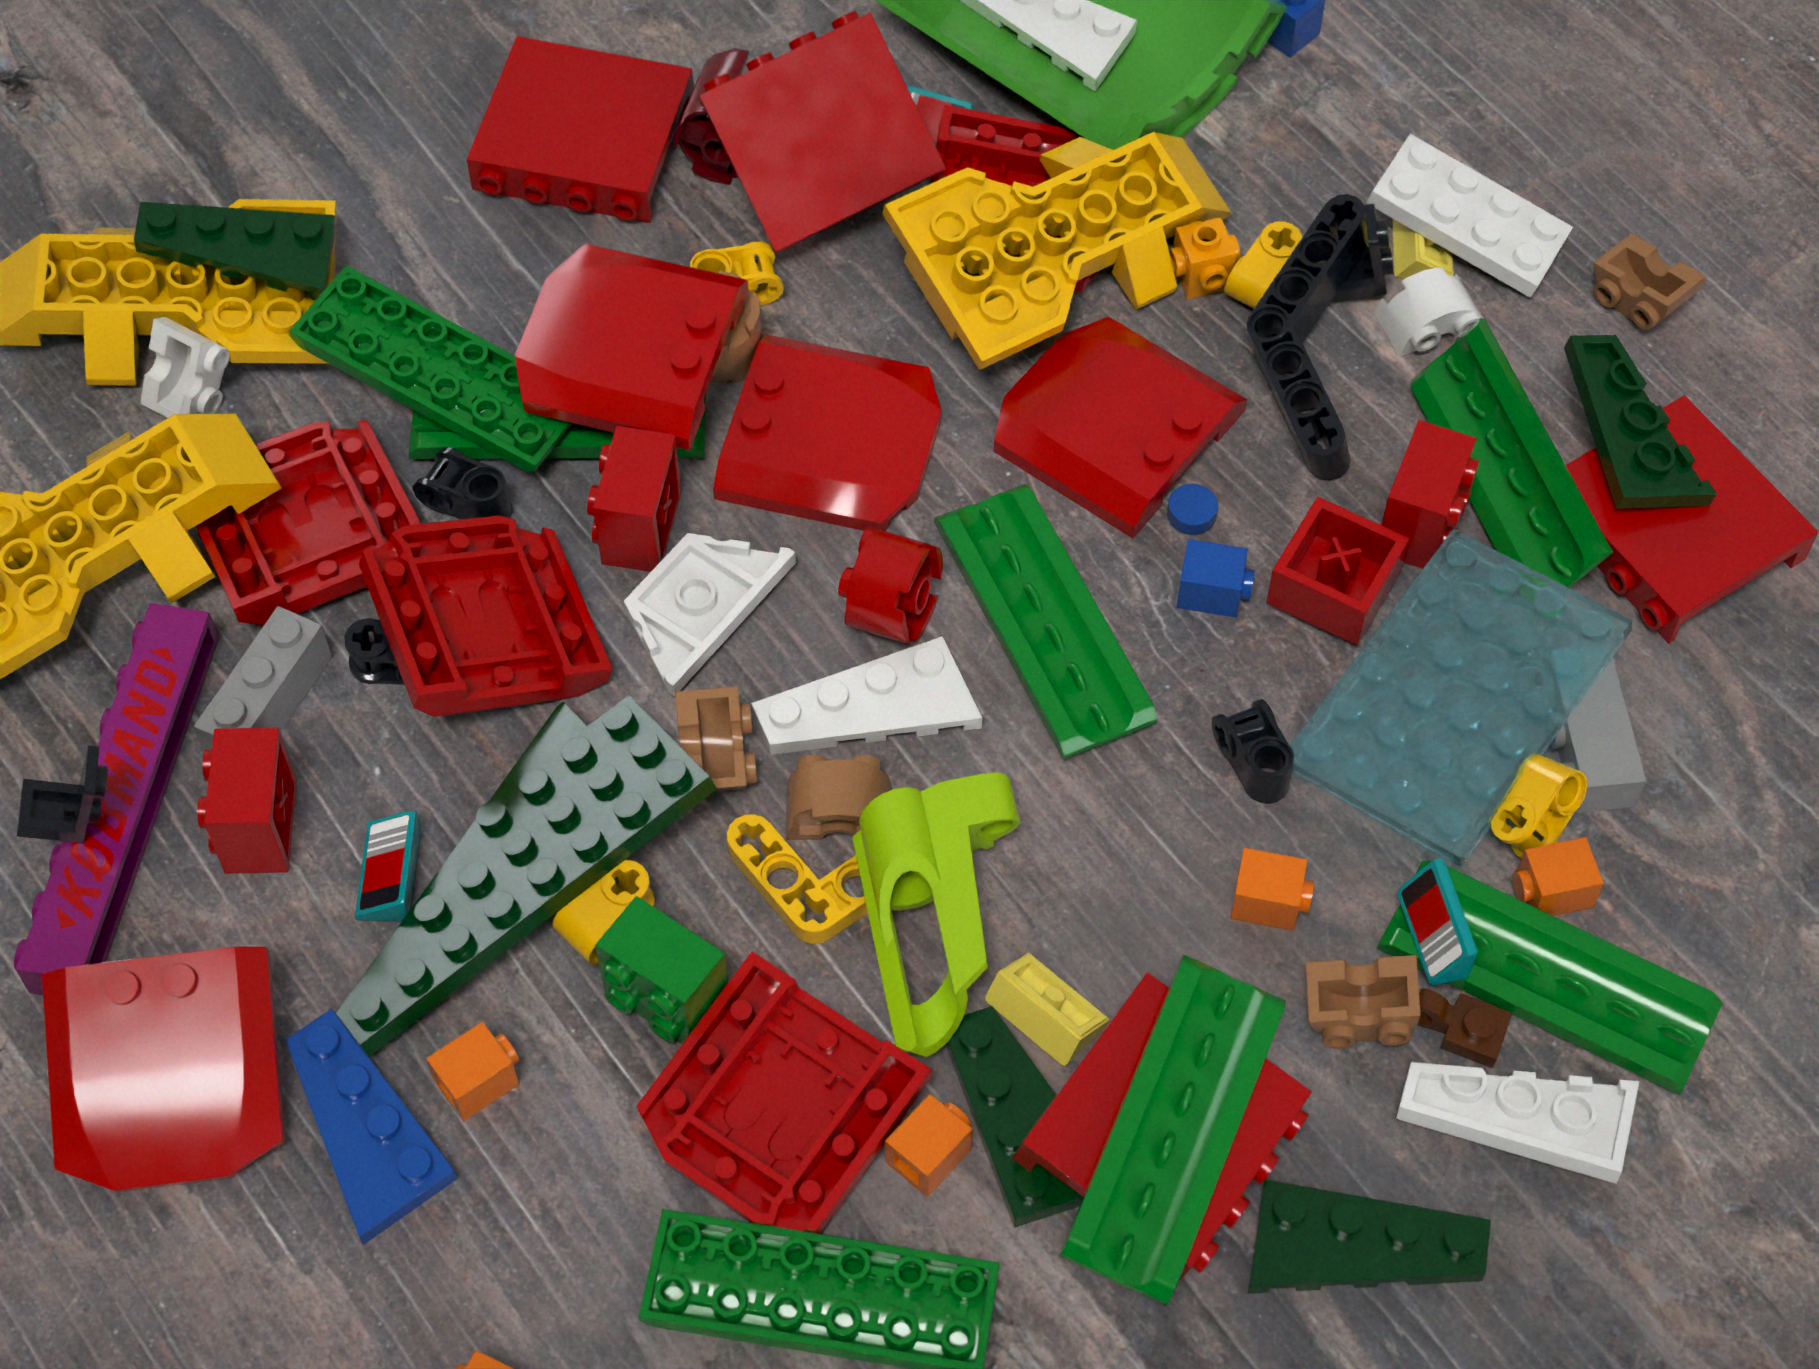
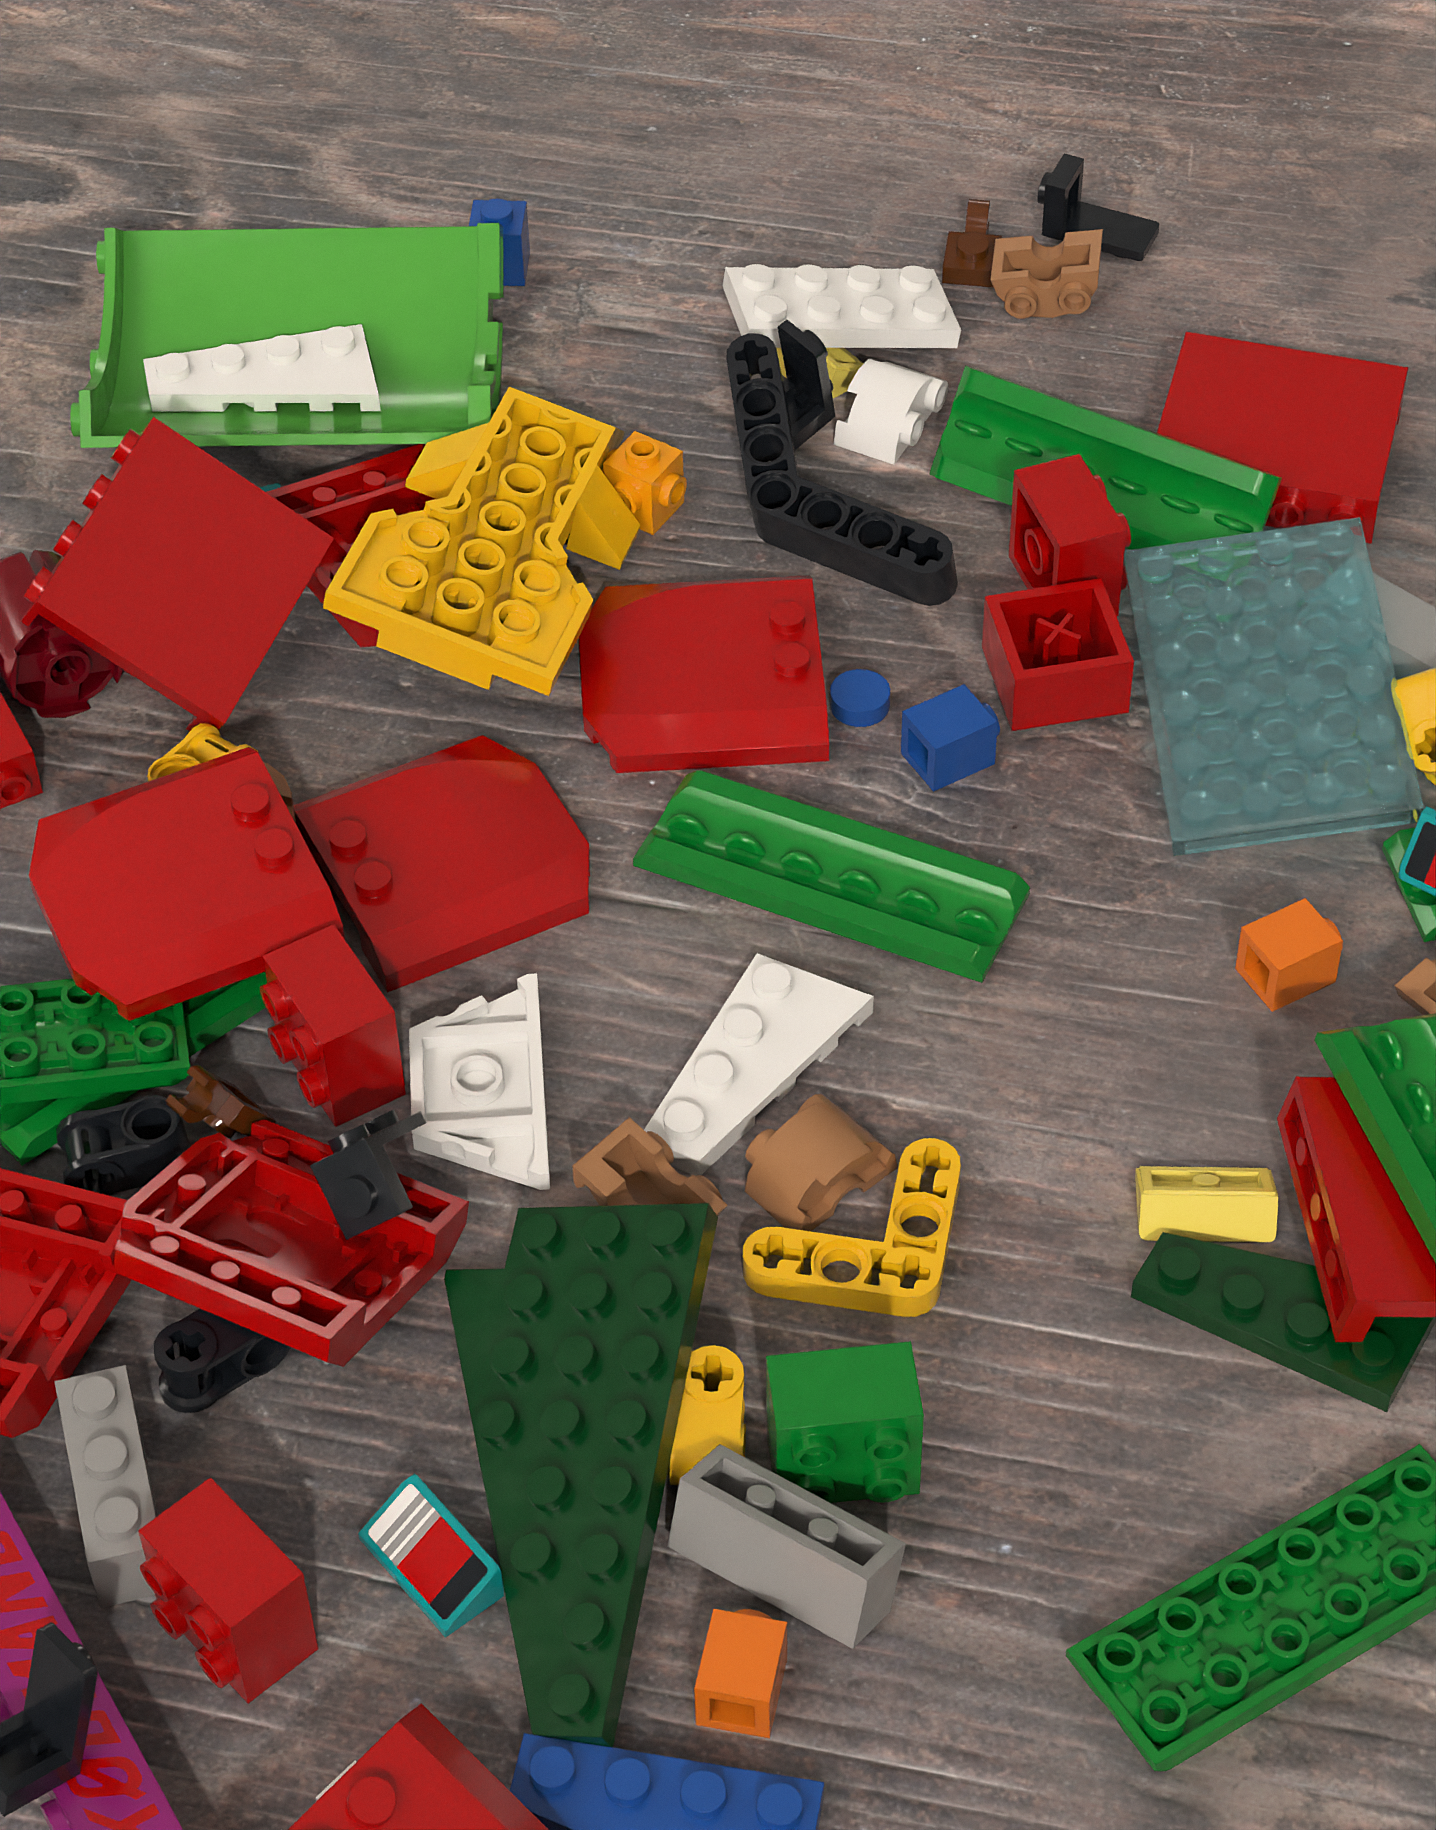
camera: 40 degrees left, 10 degrees down
(540, 500) = (217, 1103): none -> reddish brown plate
(546, 605) = (360, 1176): none -> black bracket
(564, 1018) = (786, 1545): none -> light grey brick
(778, 1101) = (1071, 1465): red wedge -> none
(891, 585) = (672, 933): red brick -> none
(919, 852) = (960, 1139): lime panel -> none
(929, 1144) = (1247, 1392): orange brick -> none
(1256, 742) = (1150, 851): black piece -> none
(1262, 262) = (710, 456): yellow piece -> none
(1616, 225) = (971, 252): none -> reddish brown plate
(1630, 431) = (1180, 378): dark green wing -> none
(1721, 259) = (1064, 212): none -> black bracket

